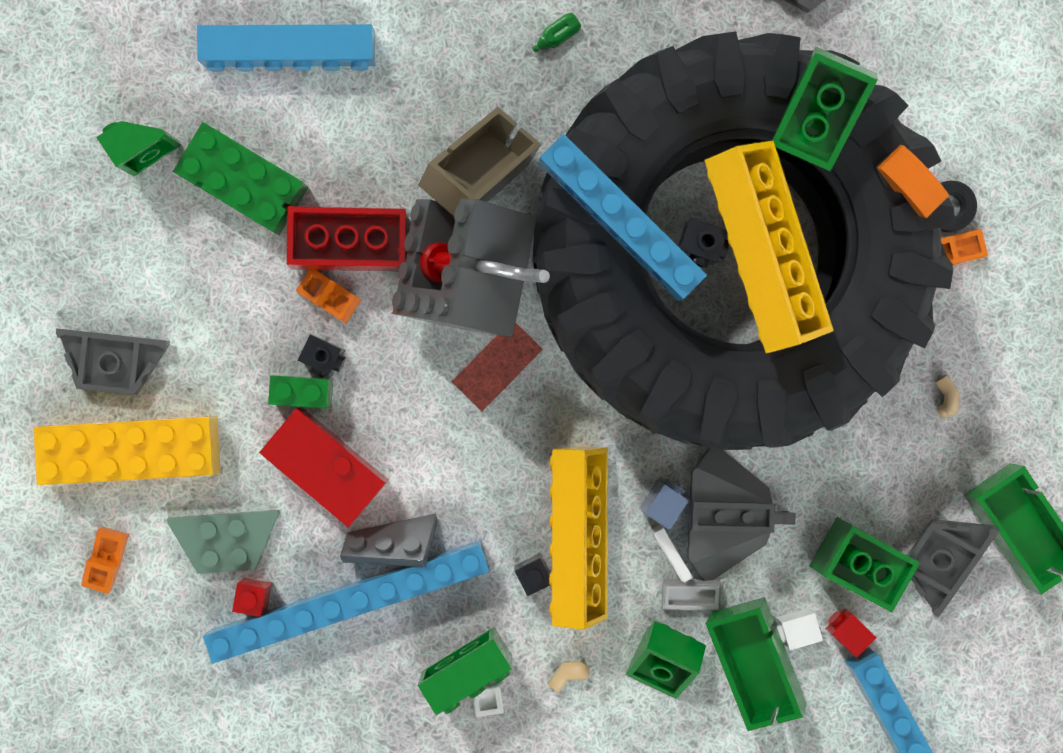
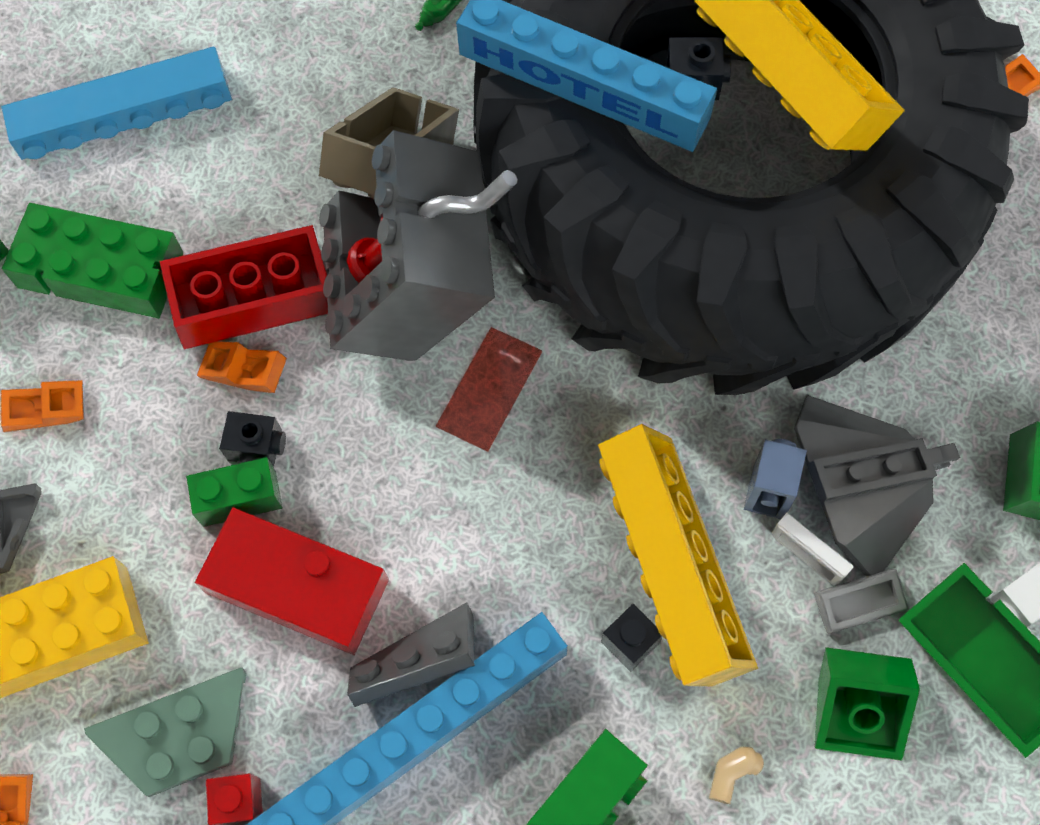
camera: 20 degrees left, 20 degrees down
(182, 279) = (42, 407): none -> orange slope

